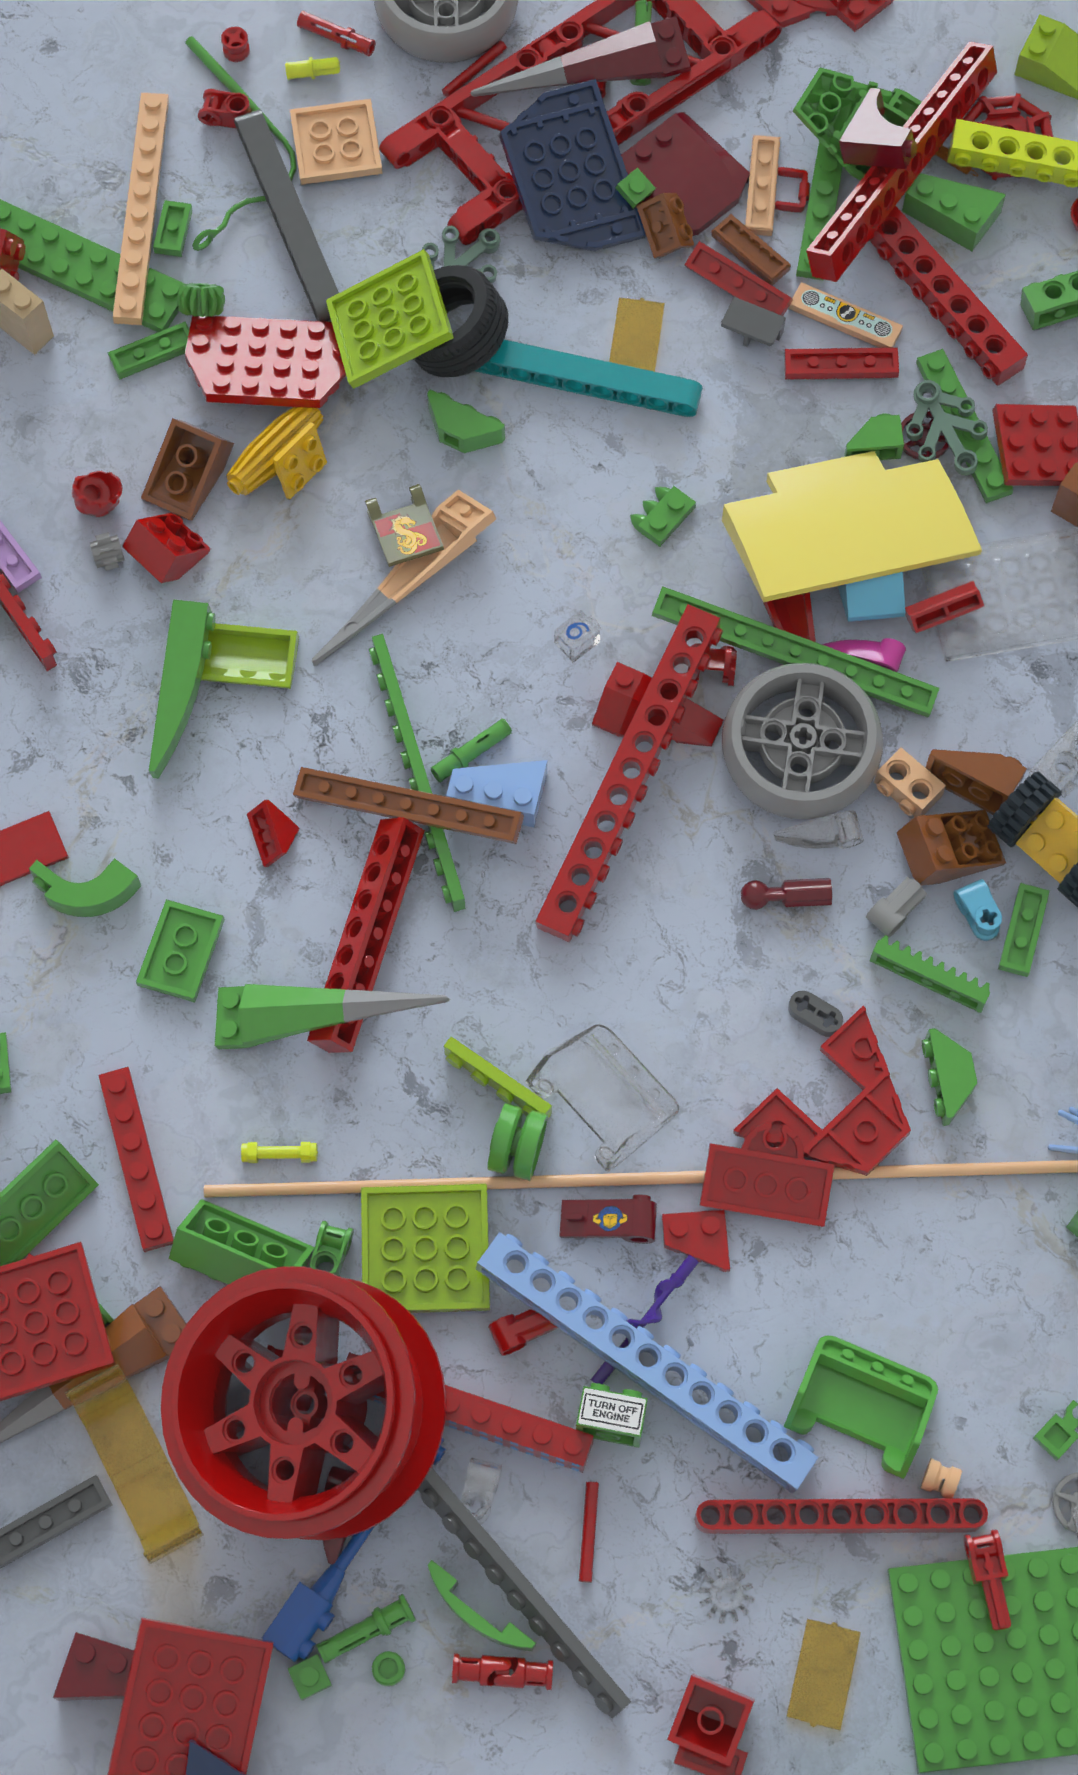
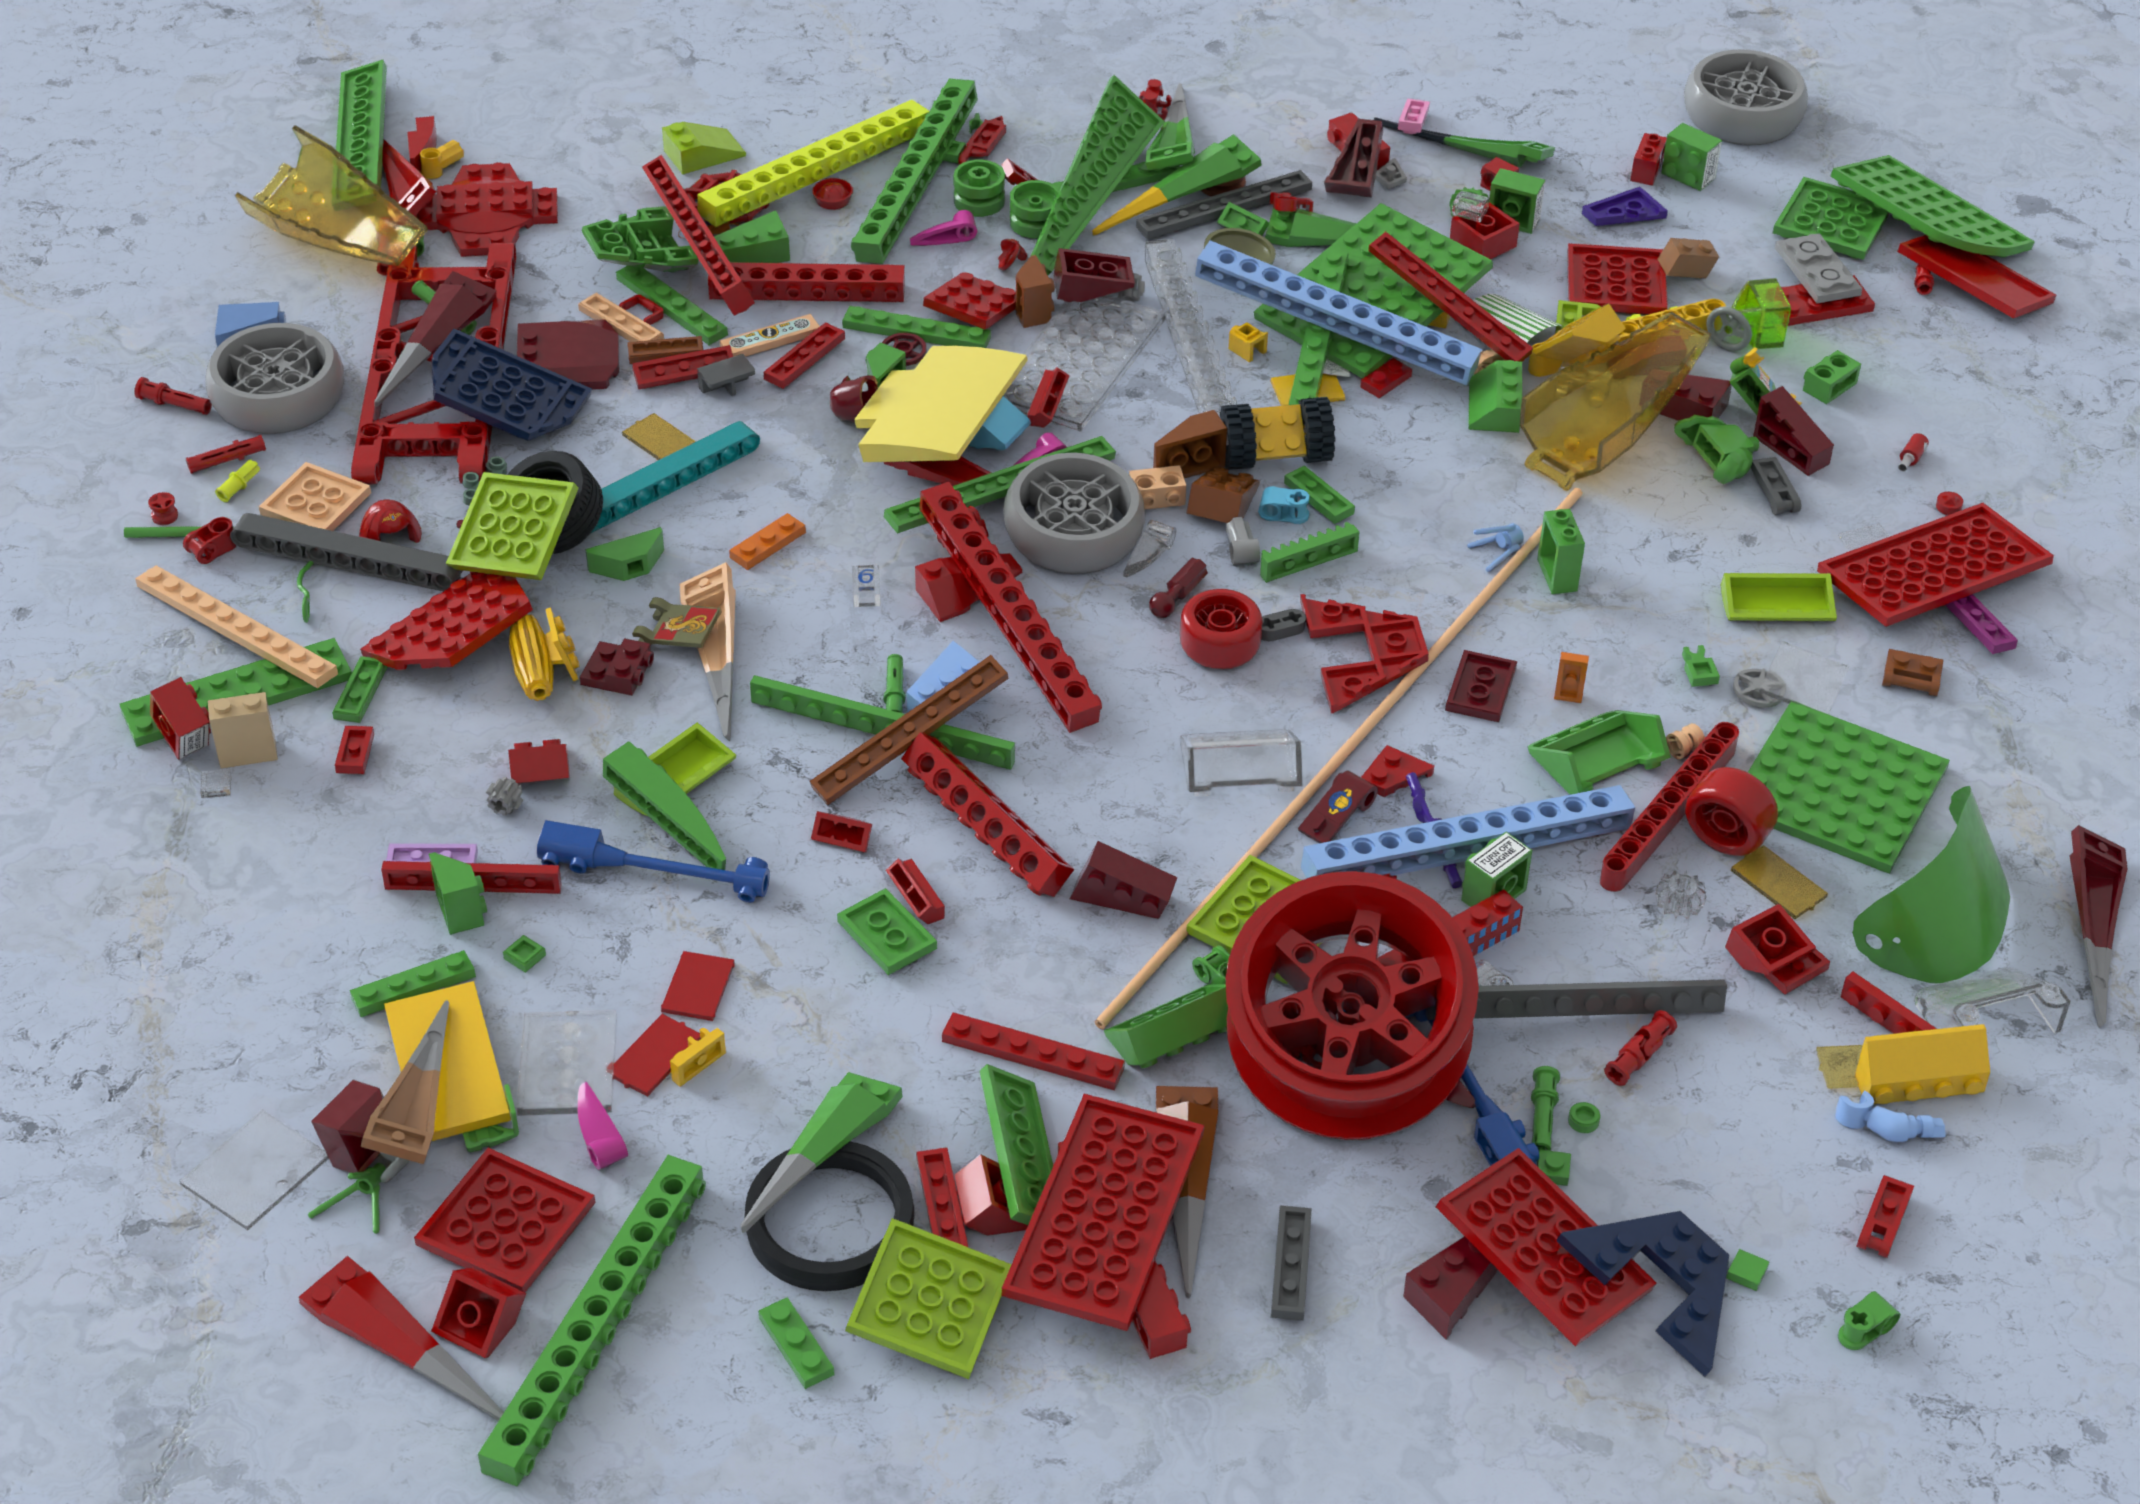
camera: 55 degrees left, 25 degrees down
(78, 402) = (354, 749): none -> red plate
(88, 898) = (778, 967): bright green arch -> none
(96, 493) = (450, 773): red hair -> none
(96, 658) = (586, 848): none -> blue bar
(135, 1463) = (1294, 1183): clear yellow windscreen -> none
(172, 228) = (274, 618): bright green plate -> none
(186, 468) = (486, 714): dark orange slope -> none
(201, 299) = (358, 630): bright green gear -> none
(242, 940) = (916, 891): none -> red piece
(252, 1152) = (1124, 947): neon yellow bar -> none
(269, 1012) = (995, 899): bright green plate -> none
(326, 517) = (618, 666): none -> dark red plate
(346, 216) = (389, 517): none -> red hair
(368, 1105) = (1123, 883): none -> dark red wedge
(474, 68) = (347, 391): red bar -> none
(486, 1073) = (1172, 807): lime plate -> none
(509, 1637) = (1546, 1045): bright green slope -> none
(513, 1141) = (1237, 812): bright green wheel -> none
(575, 515) = (767, 541): none -> orange plate
(588, 1532) = (1569, 948): red bar -> none
(635, 188) = (555, 367): bright green plate -> none
(663, 516) = (816, 499): bright green plate -> none
(665, 224) = (597, 373): dark orange bracket -> none
(756, 948) = (1221, 628): none -> red wheel
(767, 1179) = (1385, 704): red plate -> none
(806, 445) = (849, 399): none -> dark red piece
(850, 1585) = (1731, 811): none -> red wheel
(874, 140) = (673, 227): arch -> none
(877, 1242) = (1481, 686): none -> dark red tile
(934, 1322) = (1571, 677): none -> orange plate
(945, 423) = (883, 325): sand green plant -> none
(950, 1074) = (1392, 581): bright green slope -> none
(988, 1568) = (1772, 745): red connector -> none

